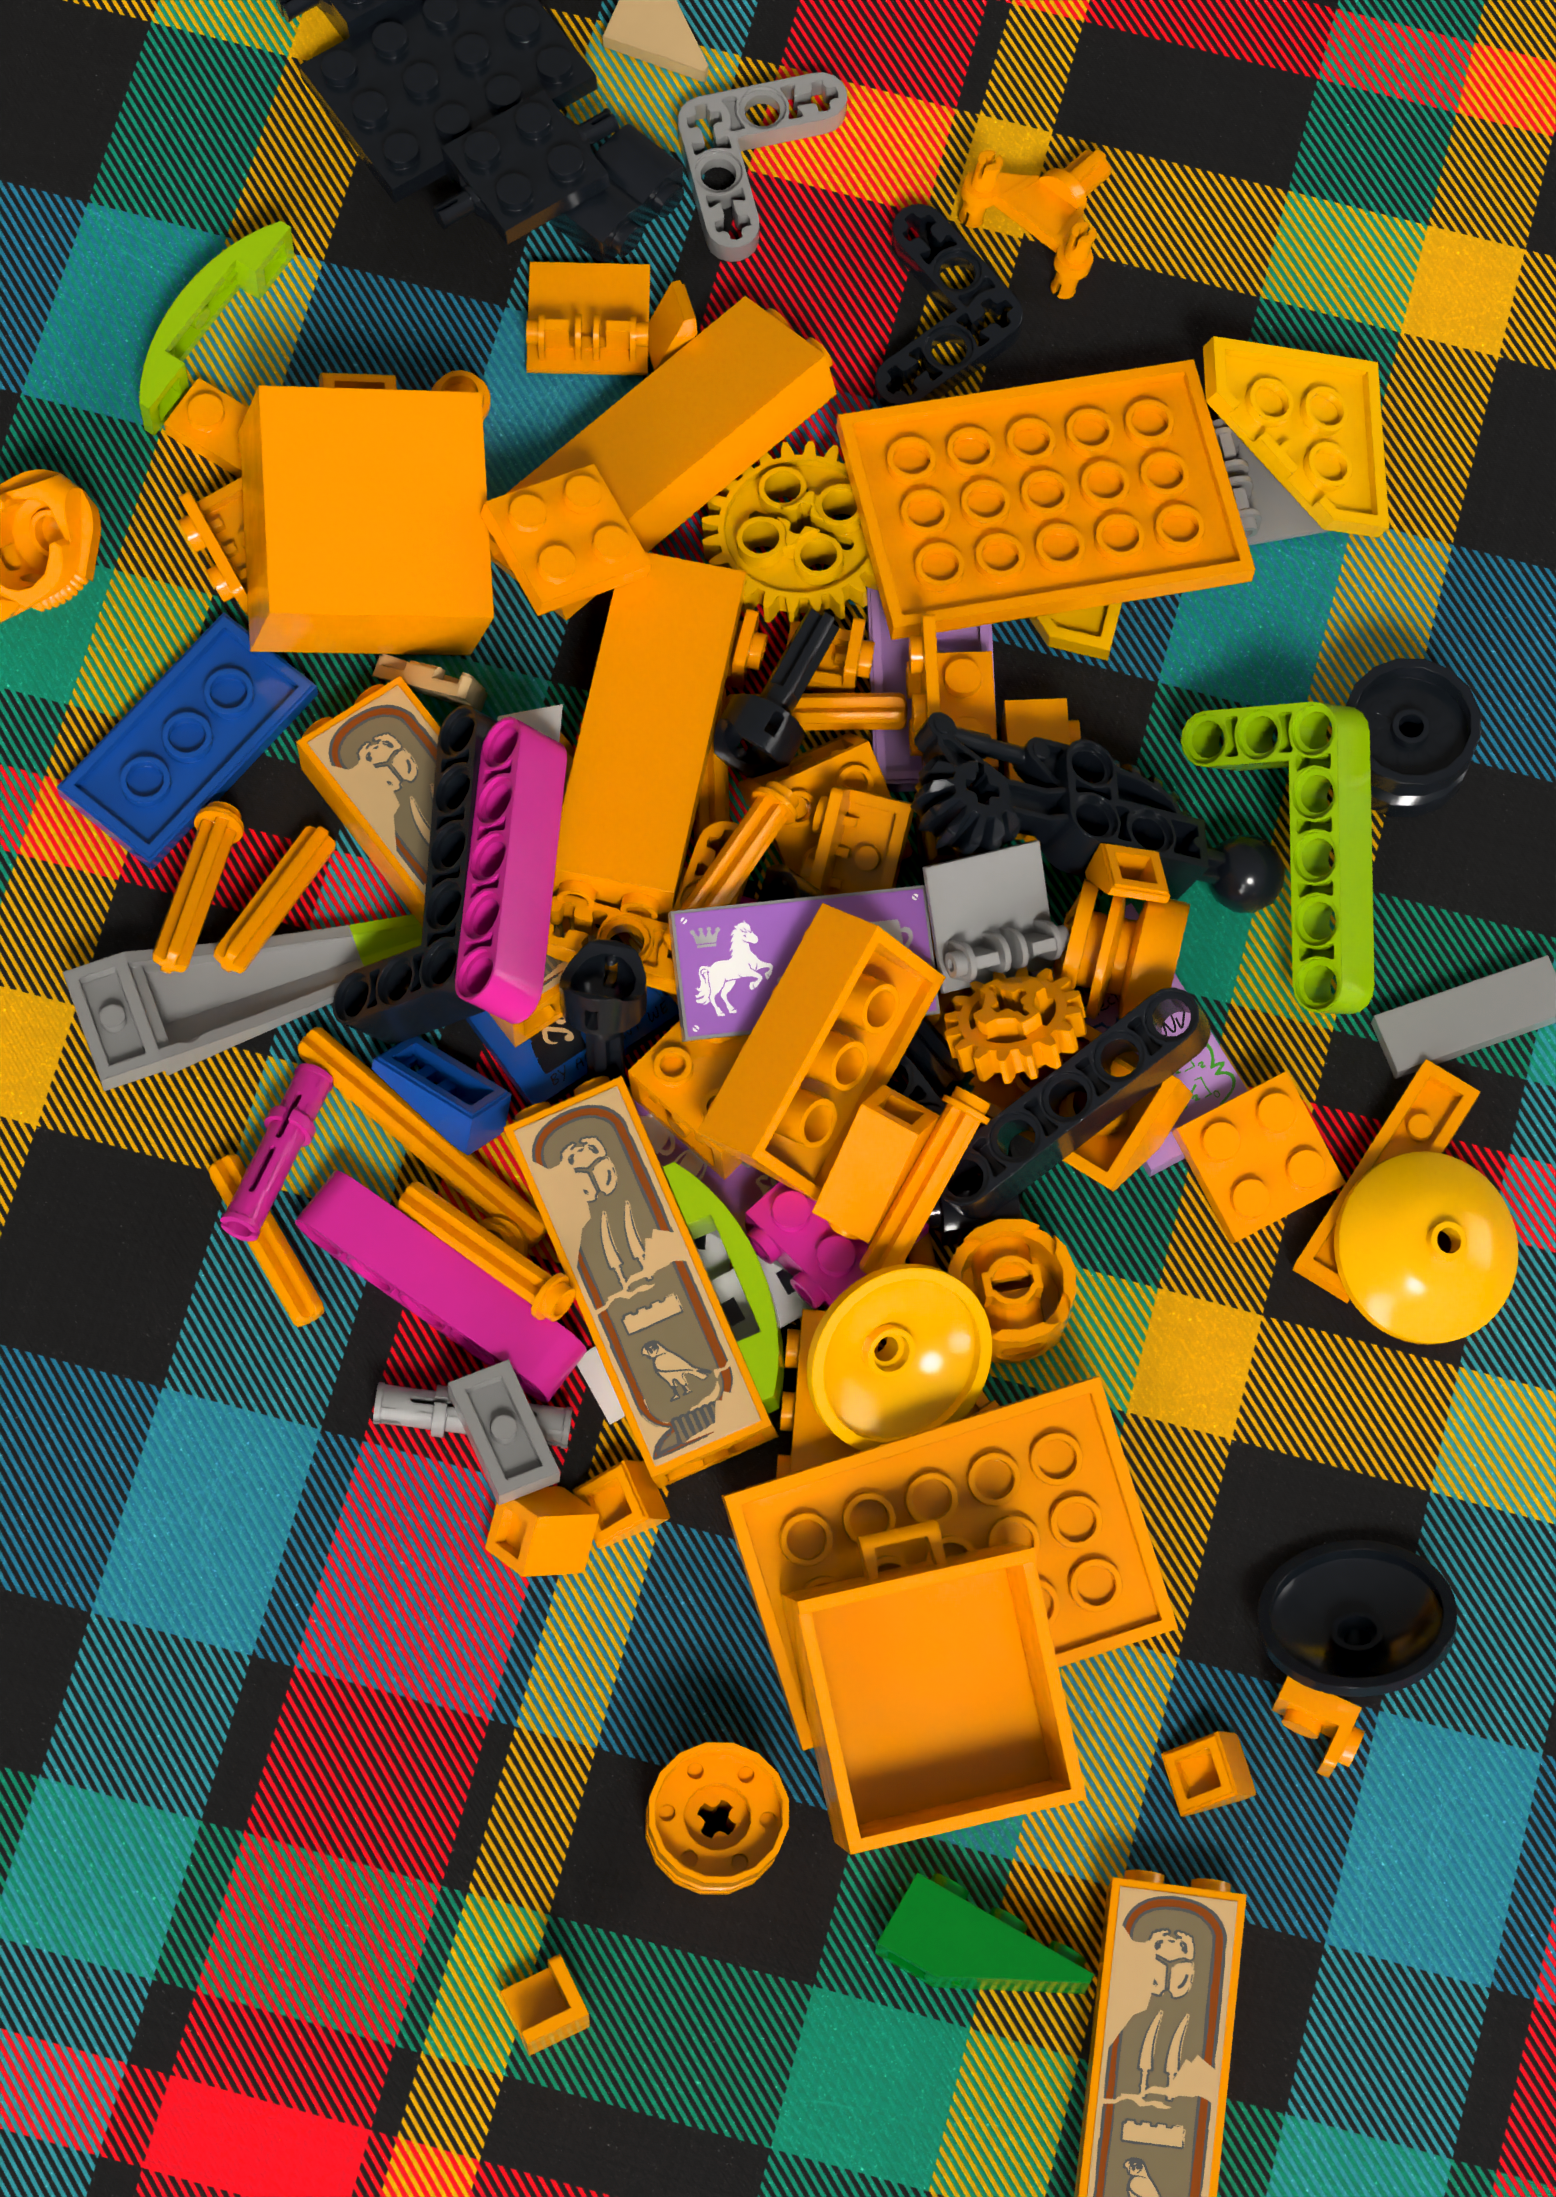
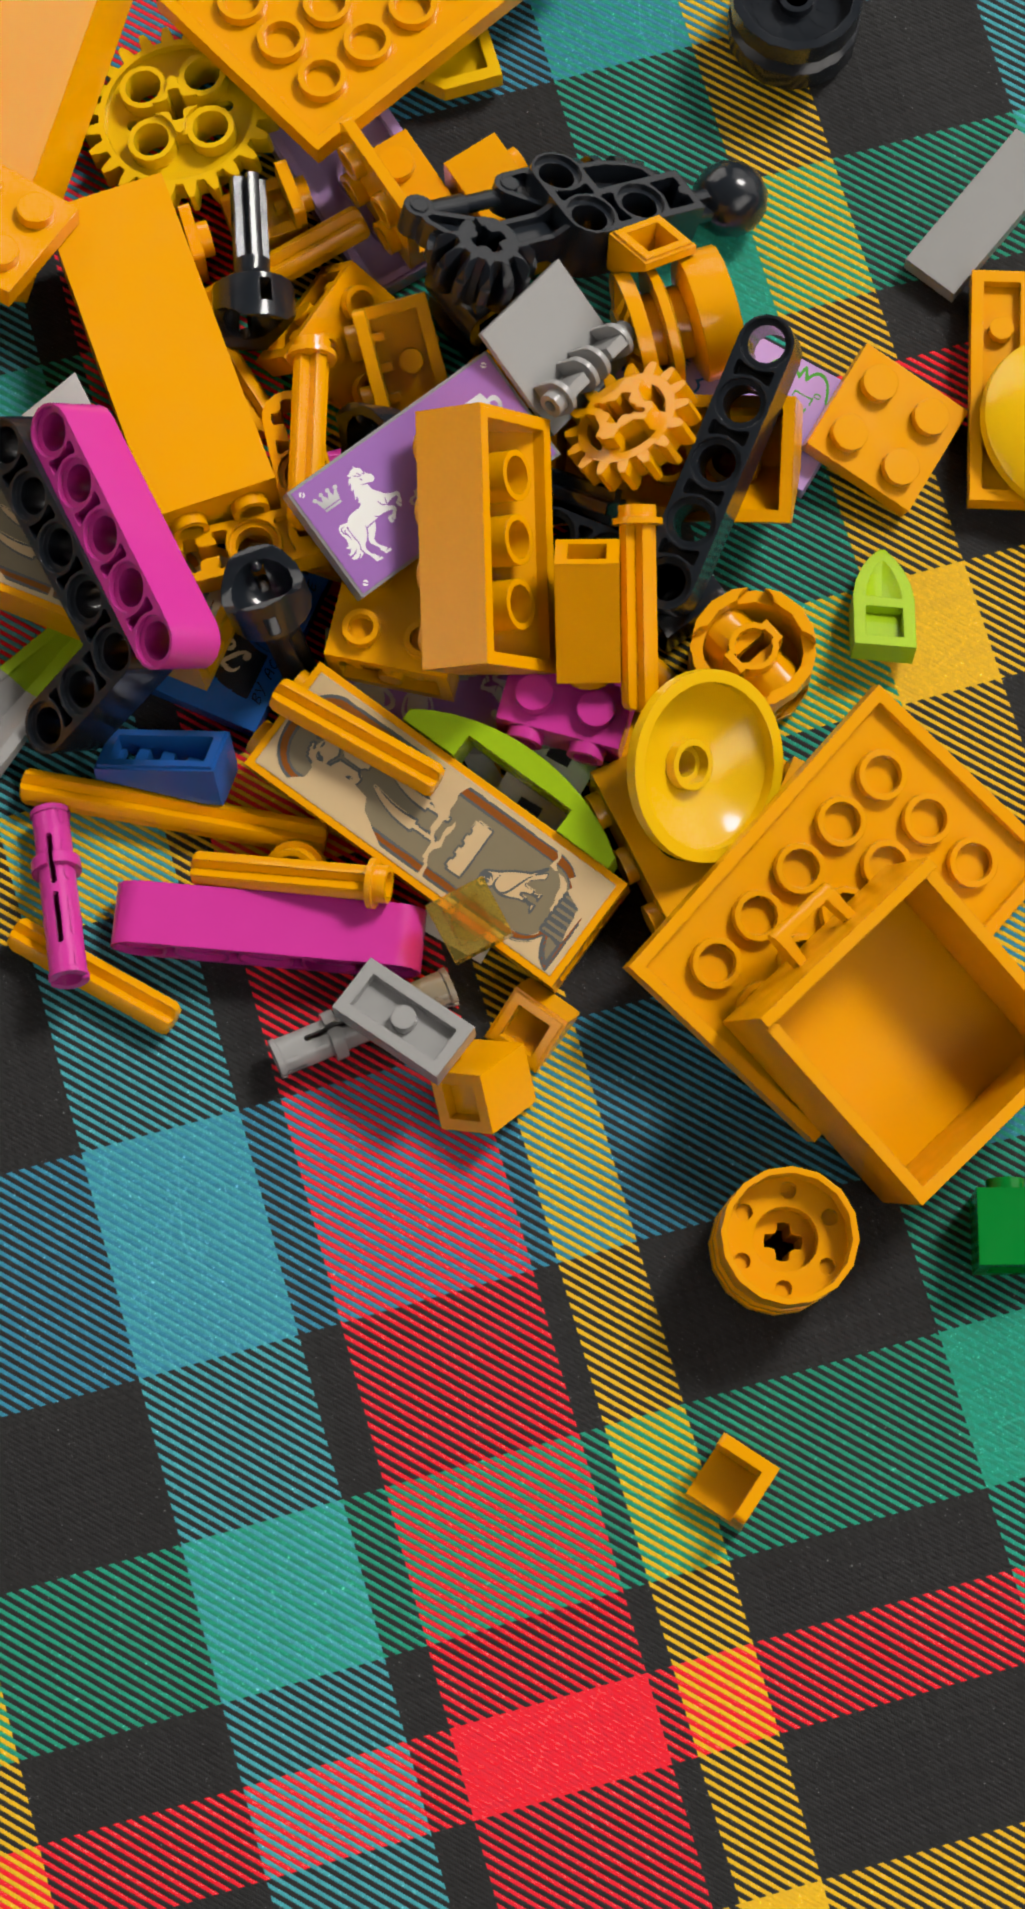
camera: 25 degrees left, 5 degrees up
(611, 1160) = (356, 737): none -> light orange axle
(612, 1376) = (469, 920): none -> clear yellow plate
(1156, 1318) = (882, 612): none -> lime plate
(1313, 833) = (770, 128): lime beam -> none

